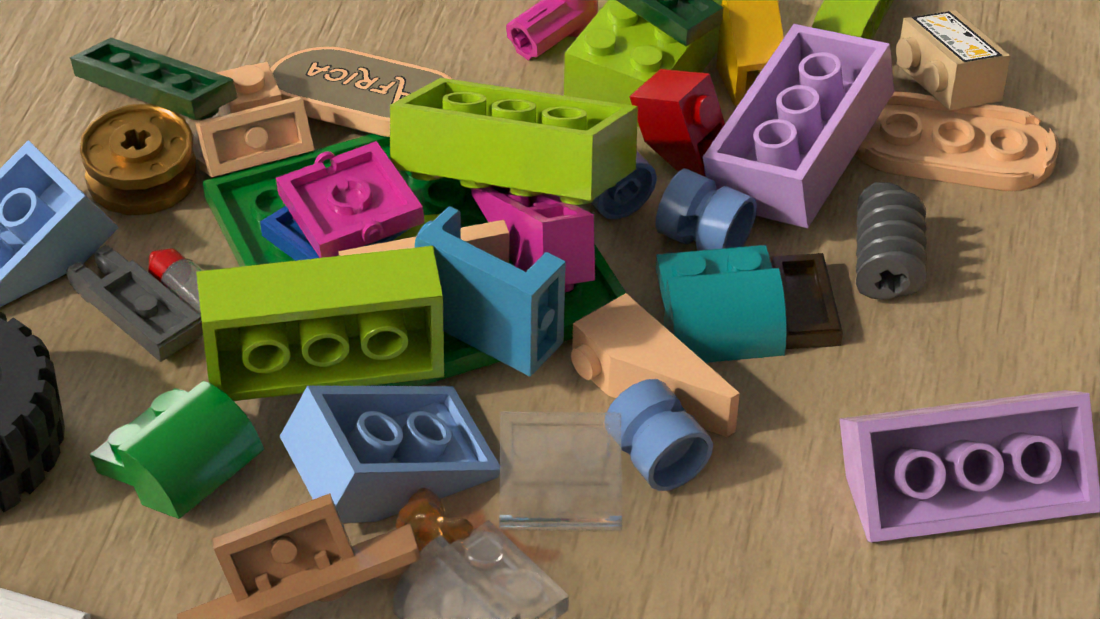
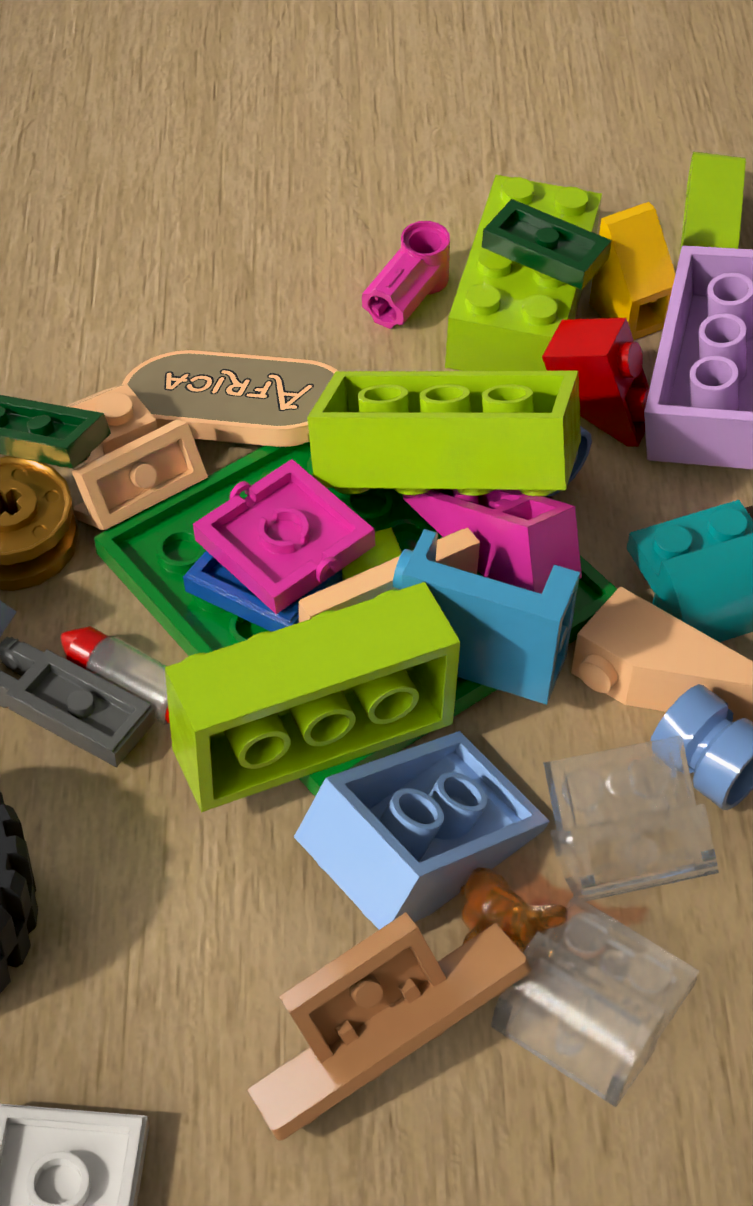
camera: 15 degrees left, 5 degrees up
(180, 448) = (181, 876): green brick -> none
(700, 213) = (658, 475): medium blue wheel -> none

